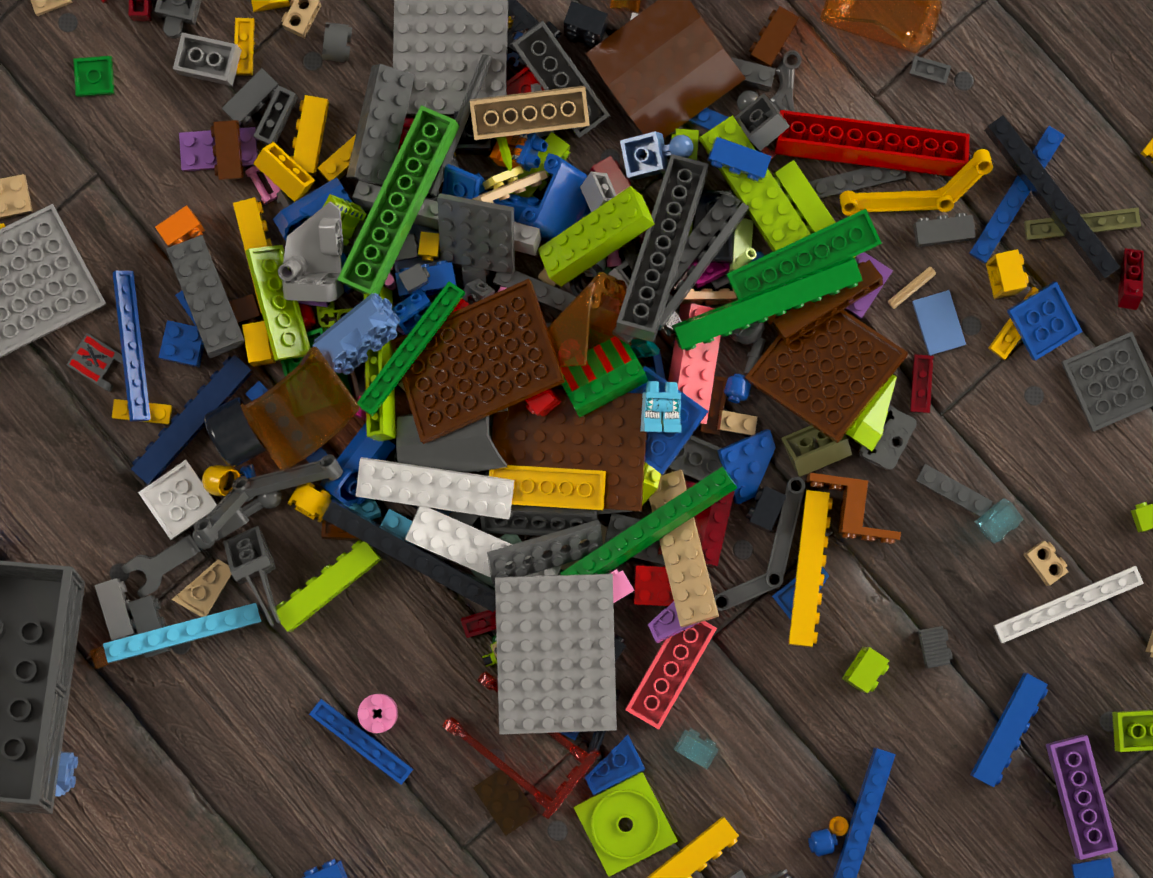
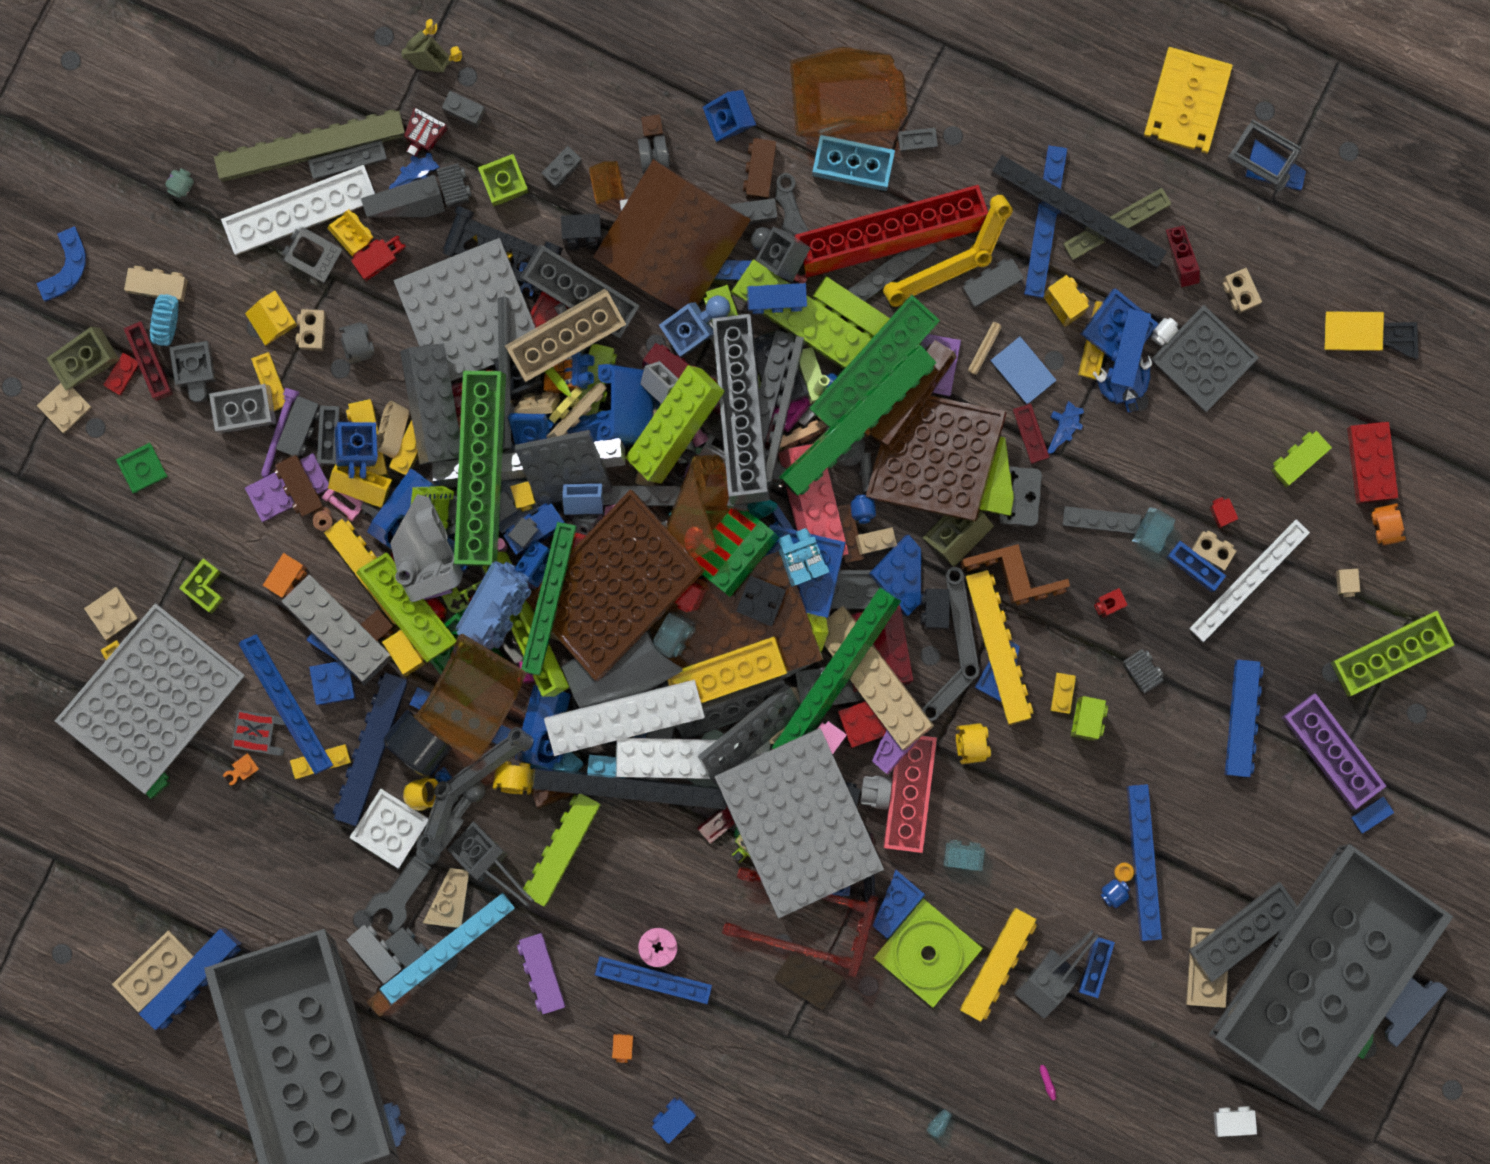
camera: 25 degrees left, 0 degrees up
(69, 389) = (243, 768): none -> orange plate
(98, 204) = (198, 586): none -> lime brick
(237, 189) = (322, 518): none -> nougat brick
(255, 66) = (290, 396): none -> medium lavender piece
(261, 692) = (542, 974): none -> medium lavender brick
(294, 145) = (350, 455): none -> blue hinge
(306, 792) = (622, 1047): none -> orange brick
(334, 134) = (391, 429): none -> tan beam
(479, 167) = (538, 404): none -> tan plate
(482, 270) = (583, 499): none -> medium blue brick
(512, 430) = (673, 635): none -> clear light blue brick
(611, 429) = (764, 595): none -> black brick
(640, 654) = (876, 791): none -> light grey piece
(748, 647) = (972, 743): none -> yellow brick
(851, 636) = (1063, 693): none -> yellow plate
(860, 54) = (848, 151): none -> medium azure brick
(935, 570) = (1113, 599): none -> red brick
(960, 388) = (1066, 426): none -> blue piece
(1024, 570) = (1196, 566): none -> blue brick
(1029, 375) = (1121, 395): none -> blue torso
(1047, 343) = (1129, 350): none -> blue brick
(1070, 531) = (1223, 512): none -> red brick
(1085, 341) = (1164, 331): none -> white brick

